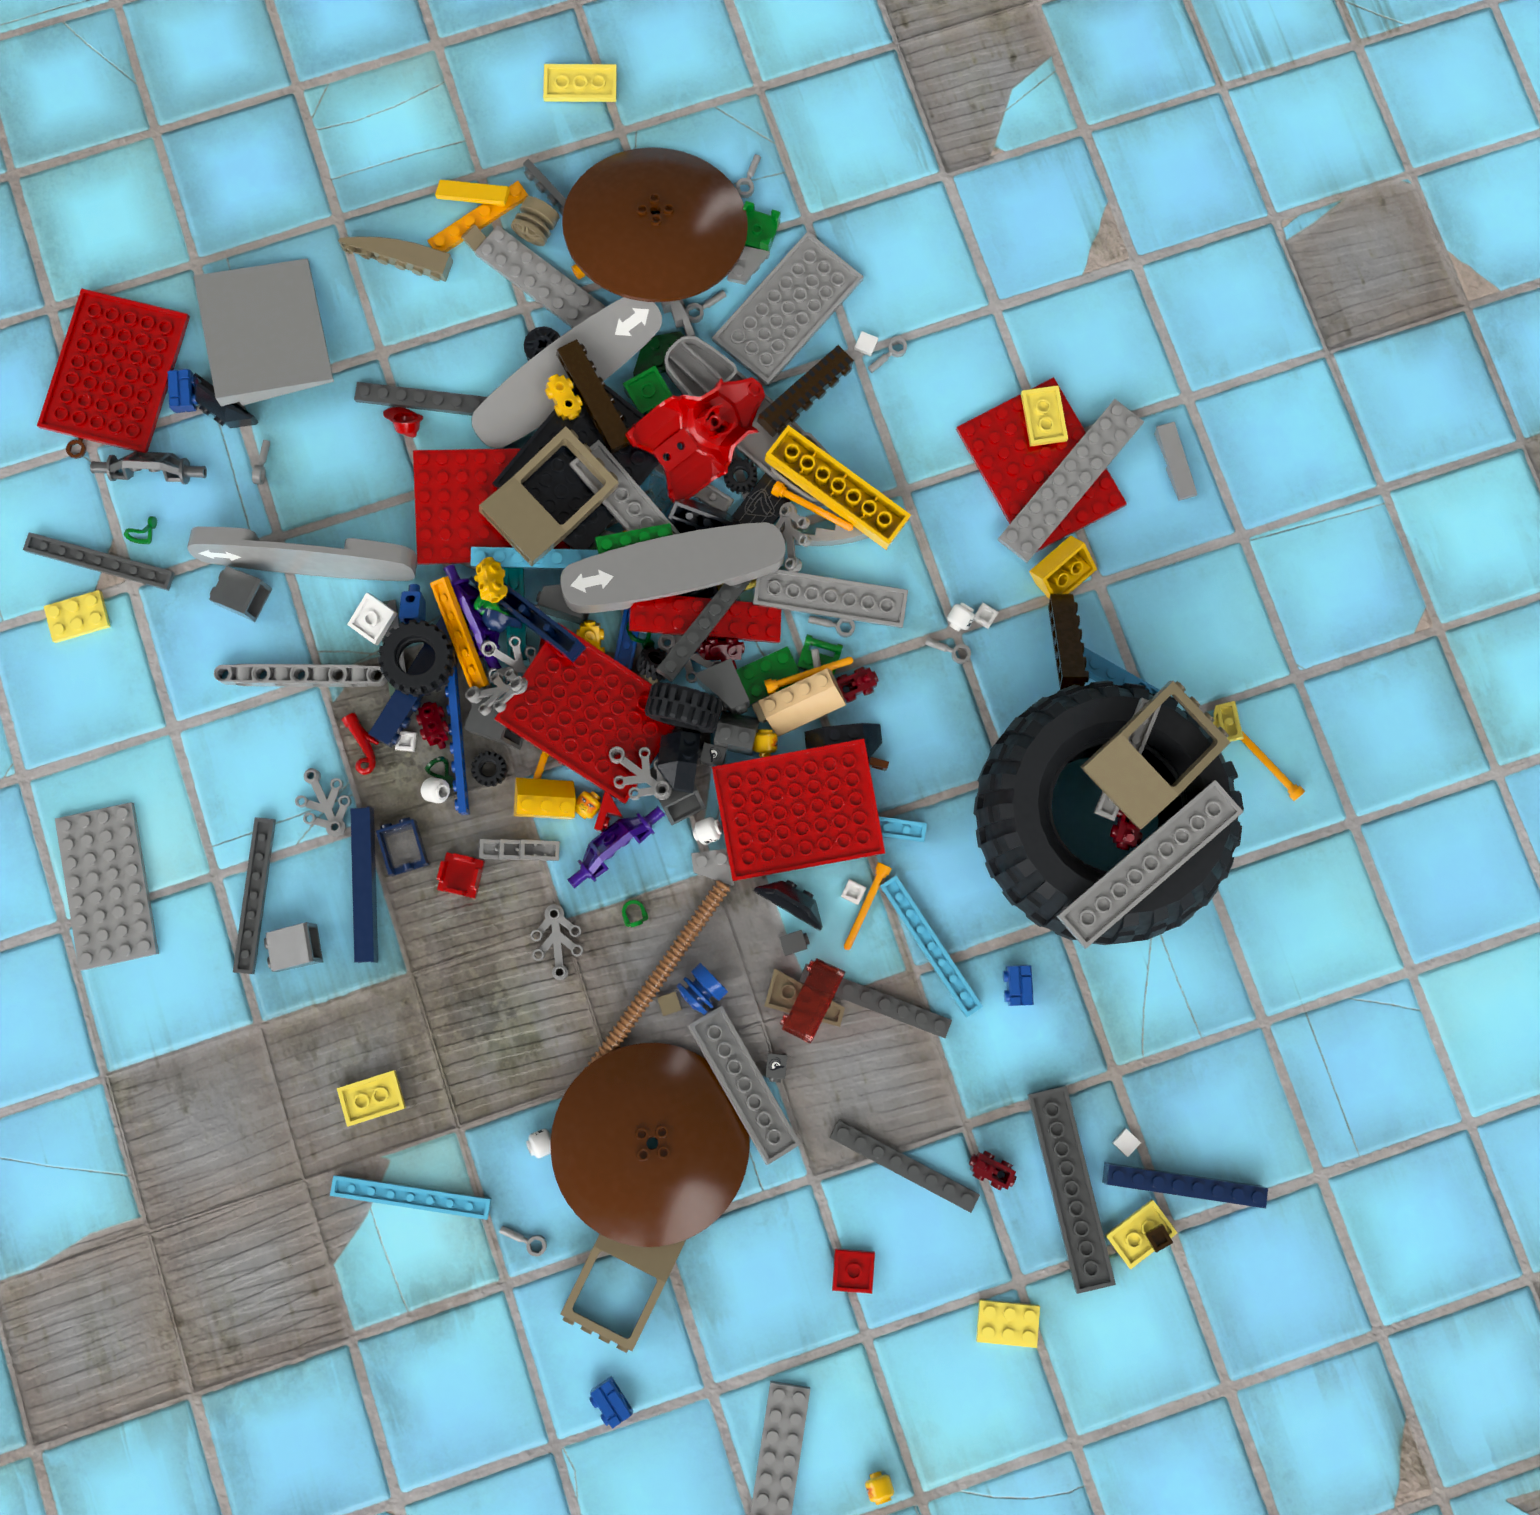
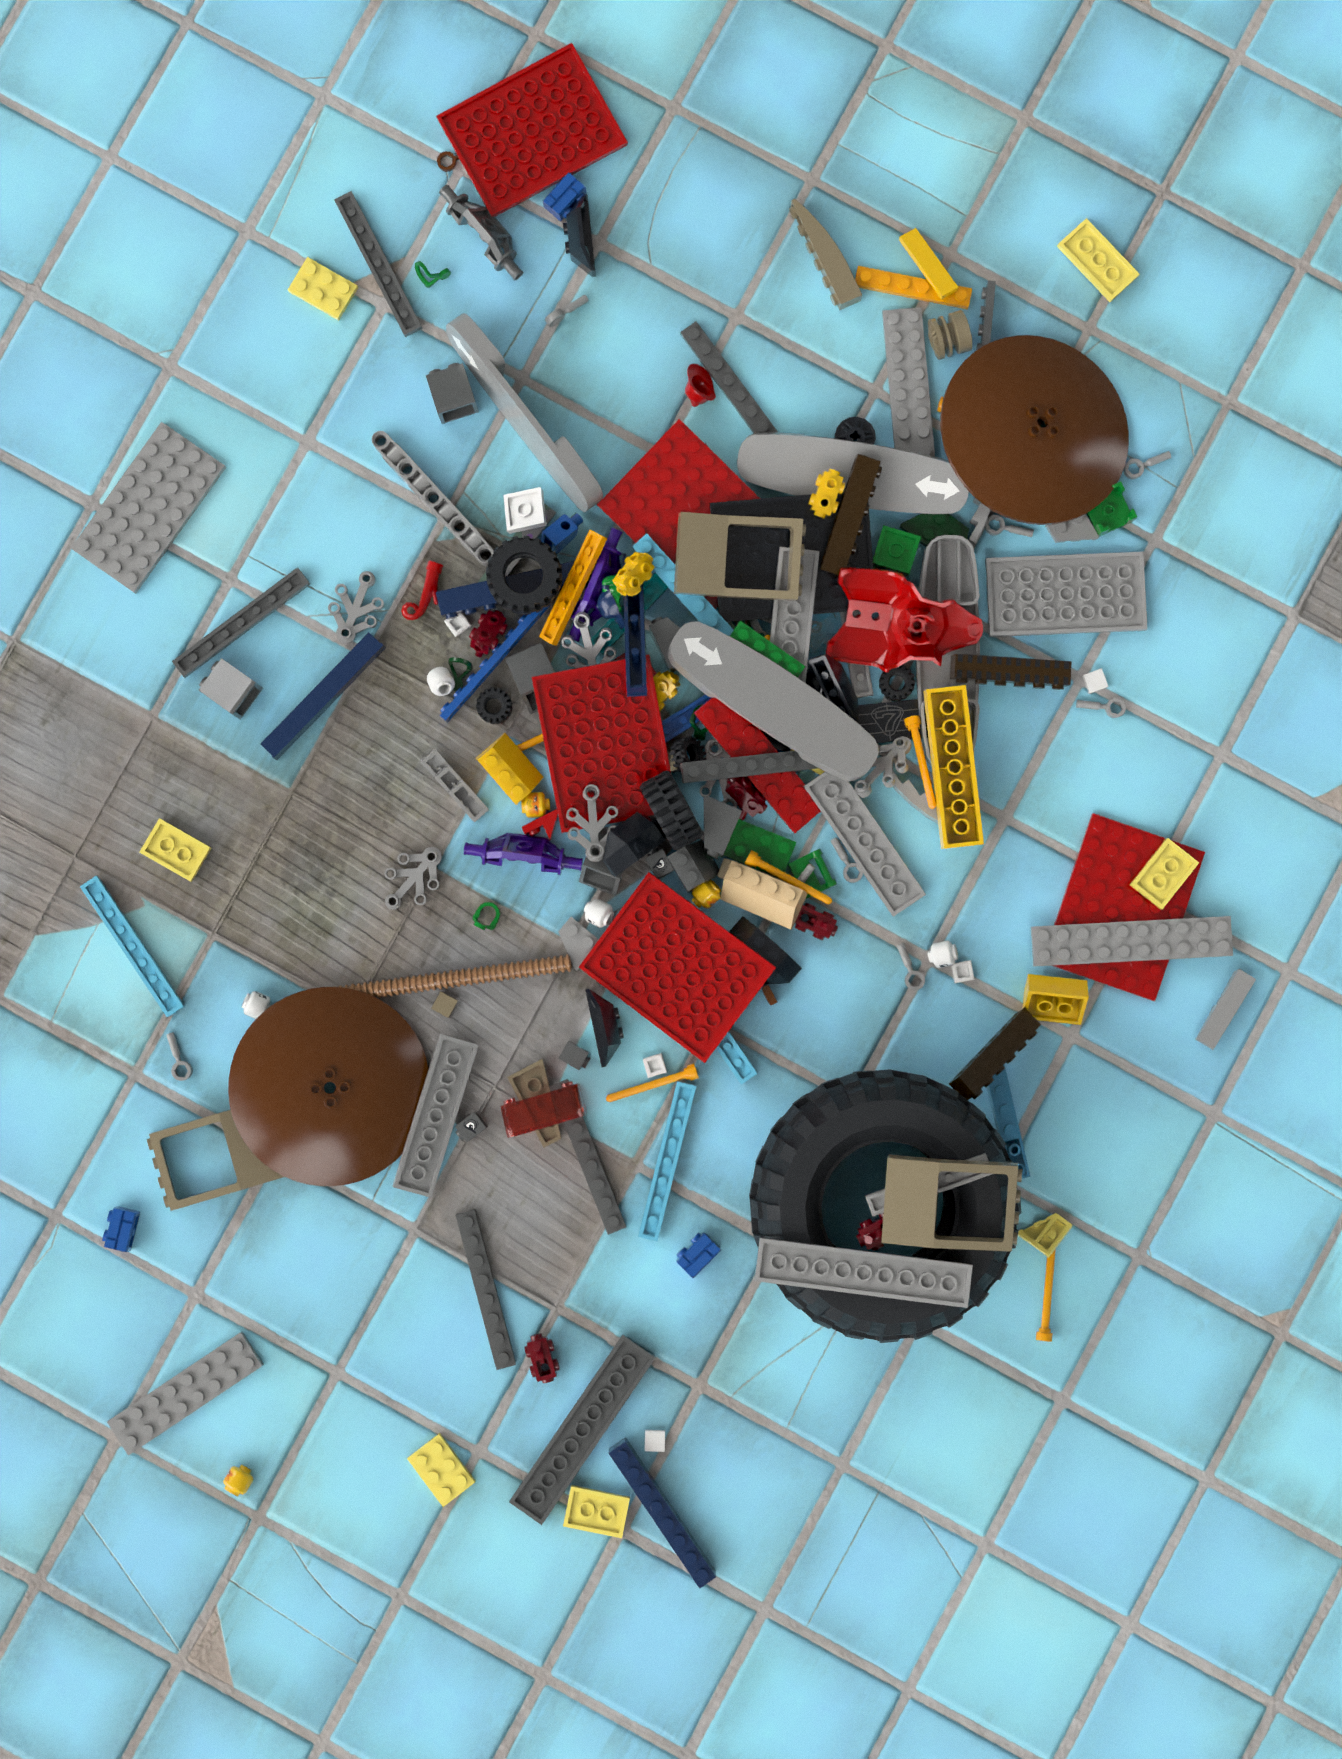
camera: 55 degrees right, 5 degrees up
(262, 331) = (666, 213): light grey slope -> none
(402, 846) = (376, 696): window -> none
(460, 875) = (395, 759): red panel -> none
(473, 237) = (893, 299): dark tan tile -> none
(516, 686) = (569, 670): light grey plant -> none
(702, 989) = (476, 1019): blue wheel -> none
(853, 1271) = (375, 1320): red plate -> none
(1158, 1238) = (604, 1527): dark brown plate -> none

